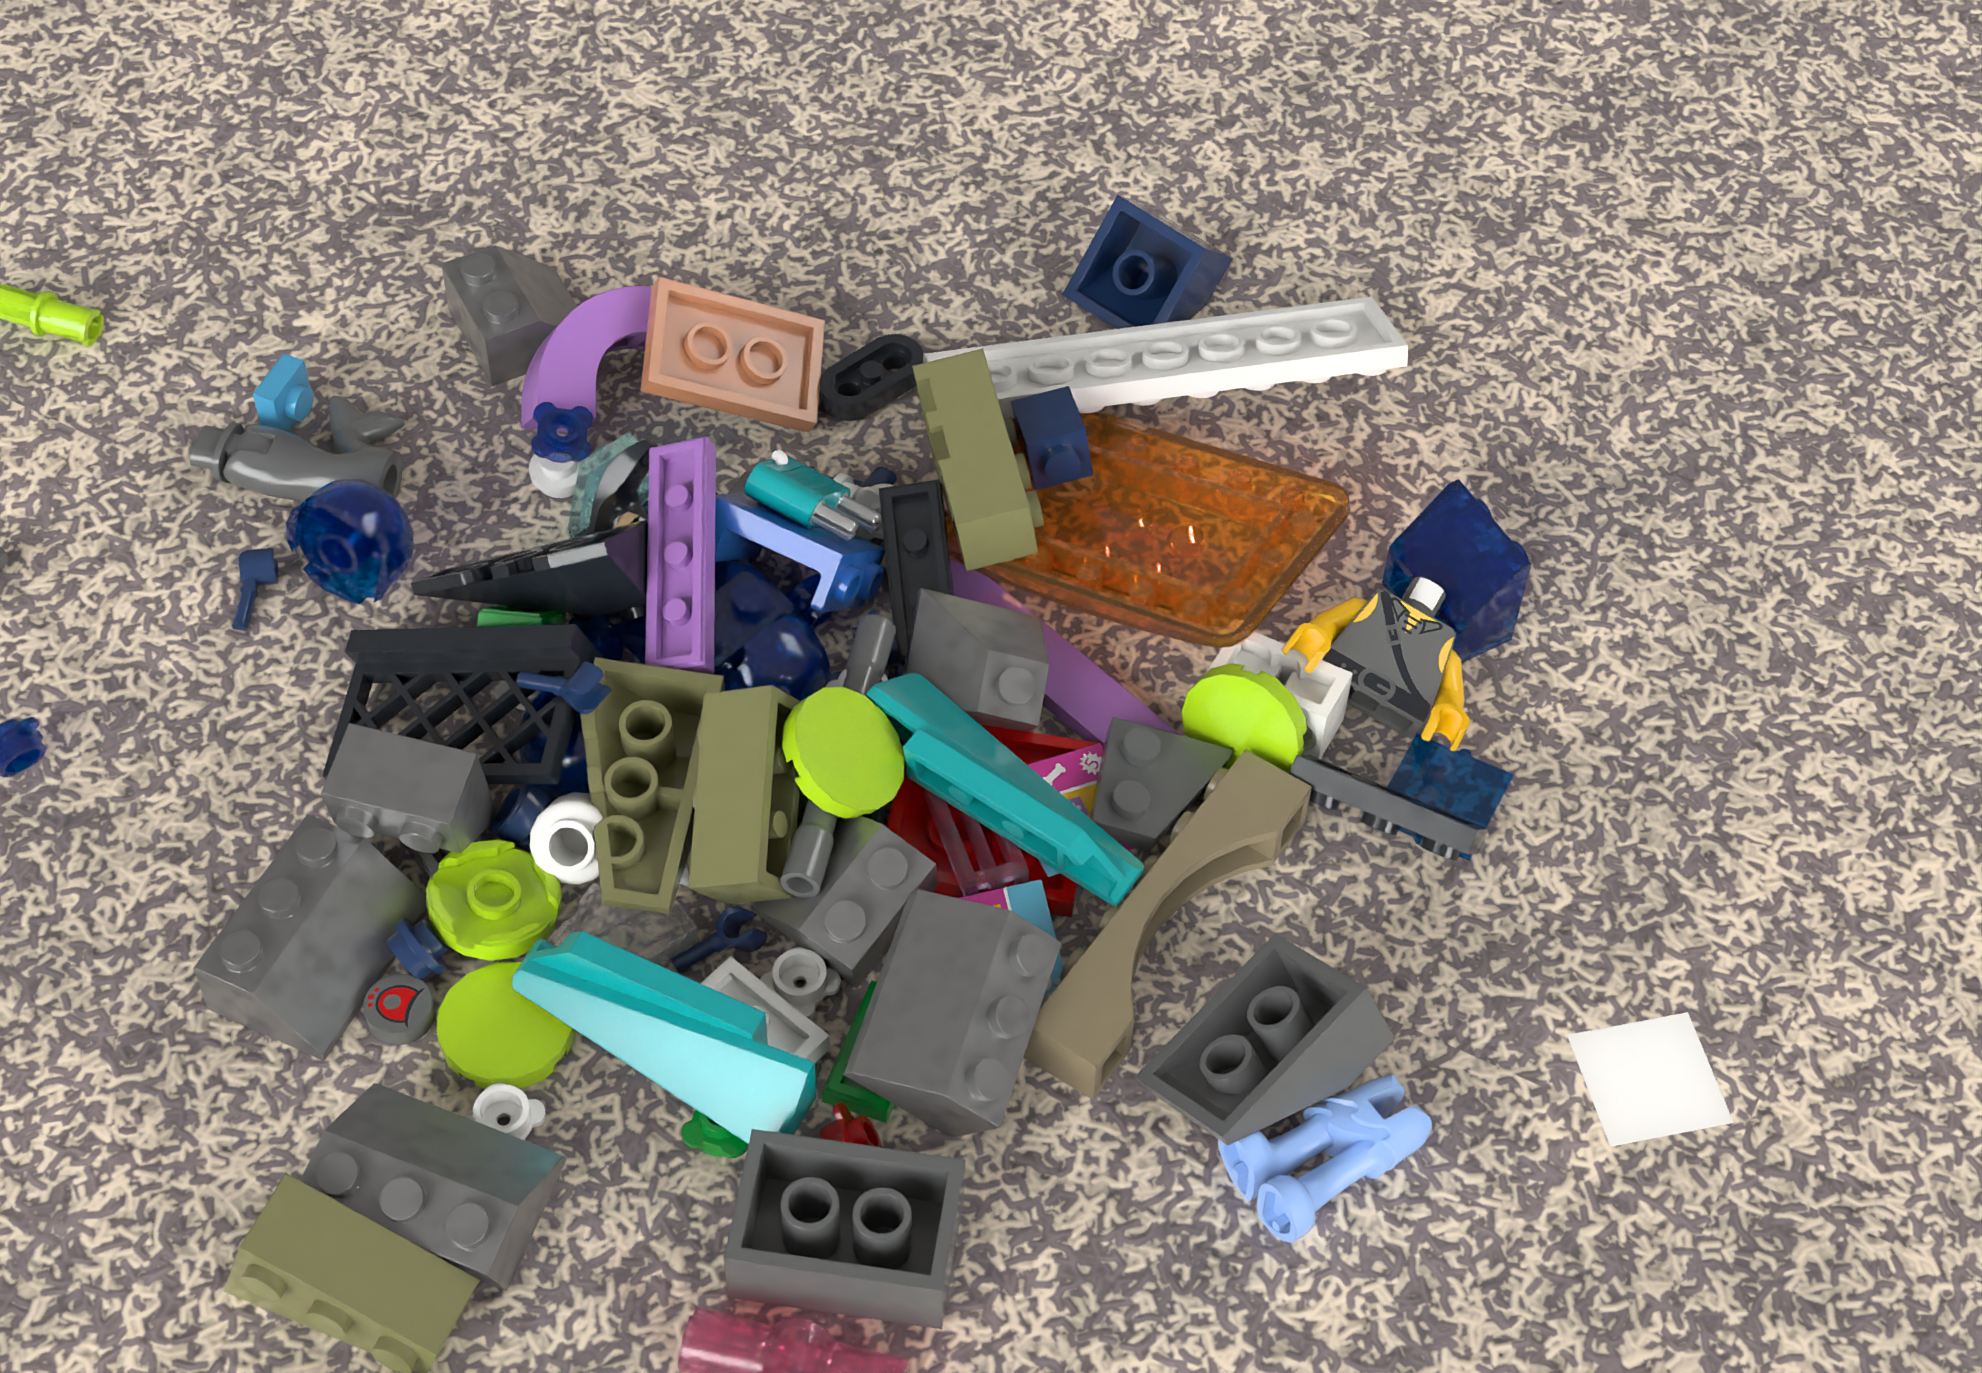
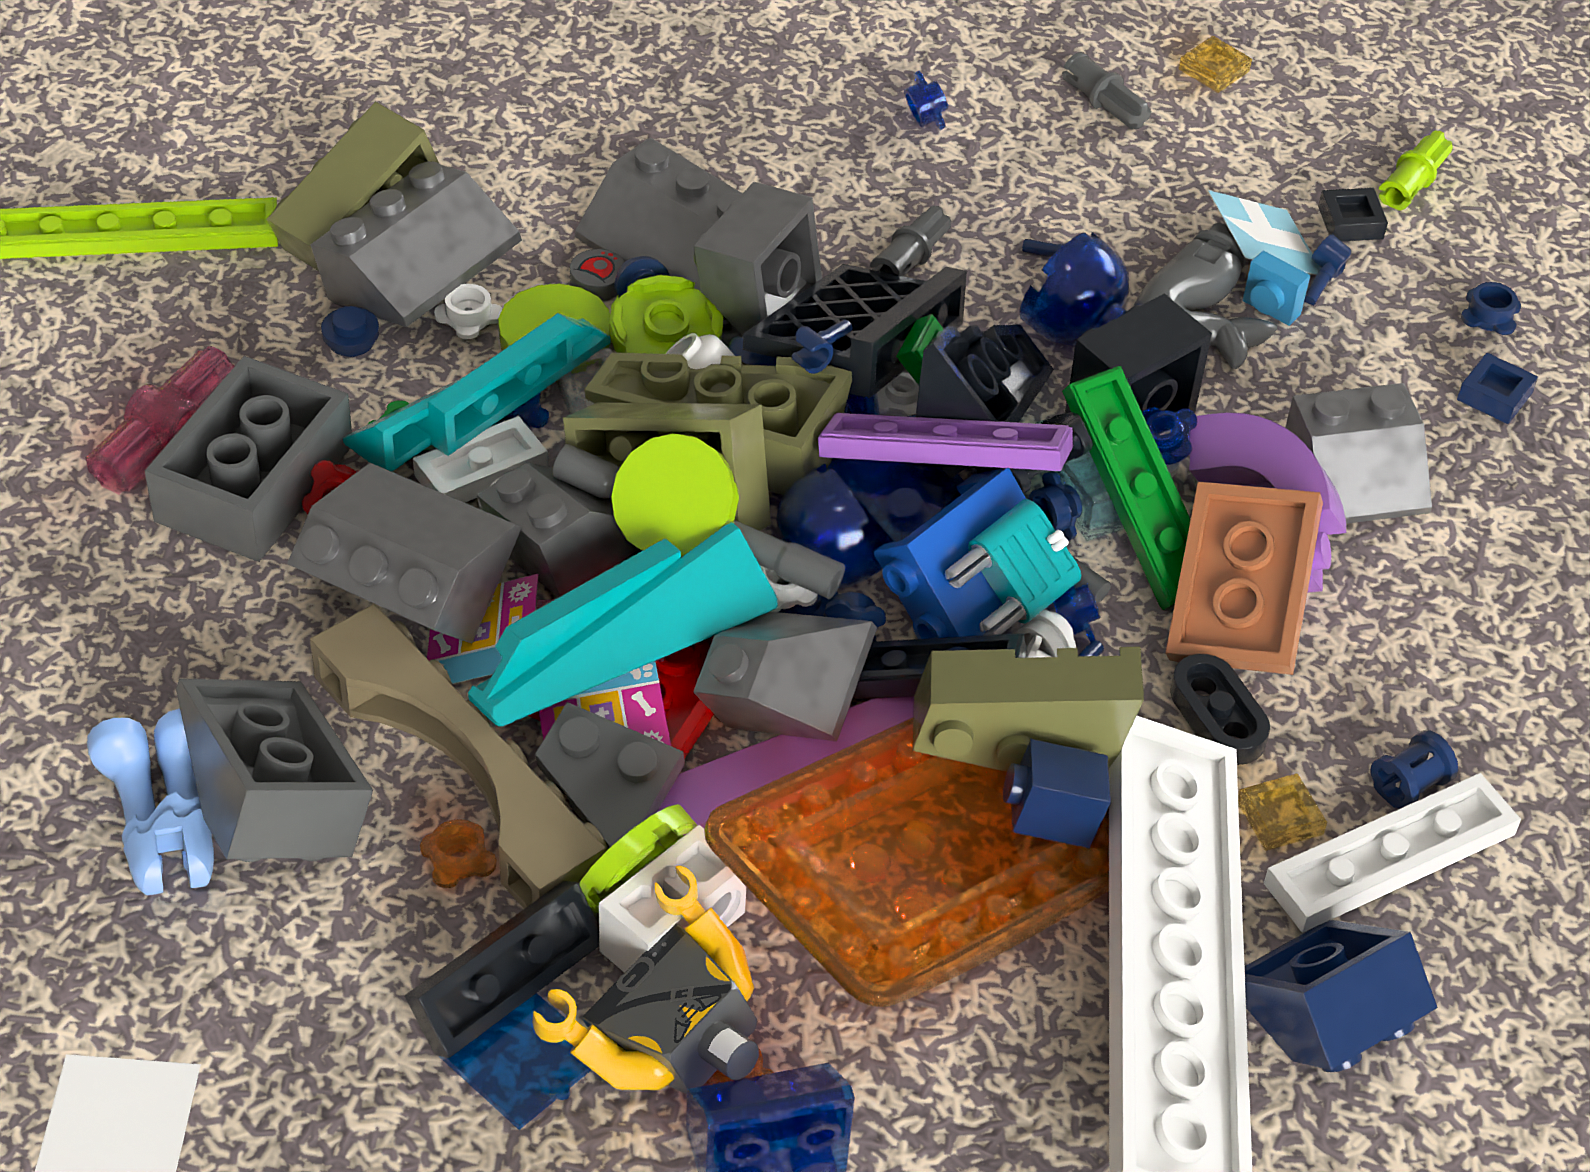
camera: 105 degrees right, 5 degrees down
(138, 353) = (1353, 214): none -> black plate
(189, 417) = (1265, 228): none -> medium azure sticker
(216, 362) = (1332, 258): none -> dark blue hand
(260, 242) = (1492, 308): none -> dark blue plate
(276, 717) = (913, 243): none -> dark grey axle
(383, 227) = (1497, 388): none -> dark blue plate
(483, 465) = (1157, 349): none -> black brick
(572, 1231) = (350, 331): none -> dark blue plate
(593, 443) = (1134, 477): none -> green tile
(893, 245) = (1414, 769): none -> dark blue bush
(962, 327) = (1281, 812): none -> clear yellow tile
(986, 254) = (1391, 852): none -> white plate
(1270, 880) = (454, 837): none -> clear orange plate

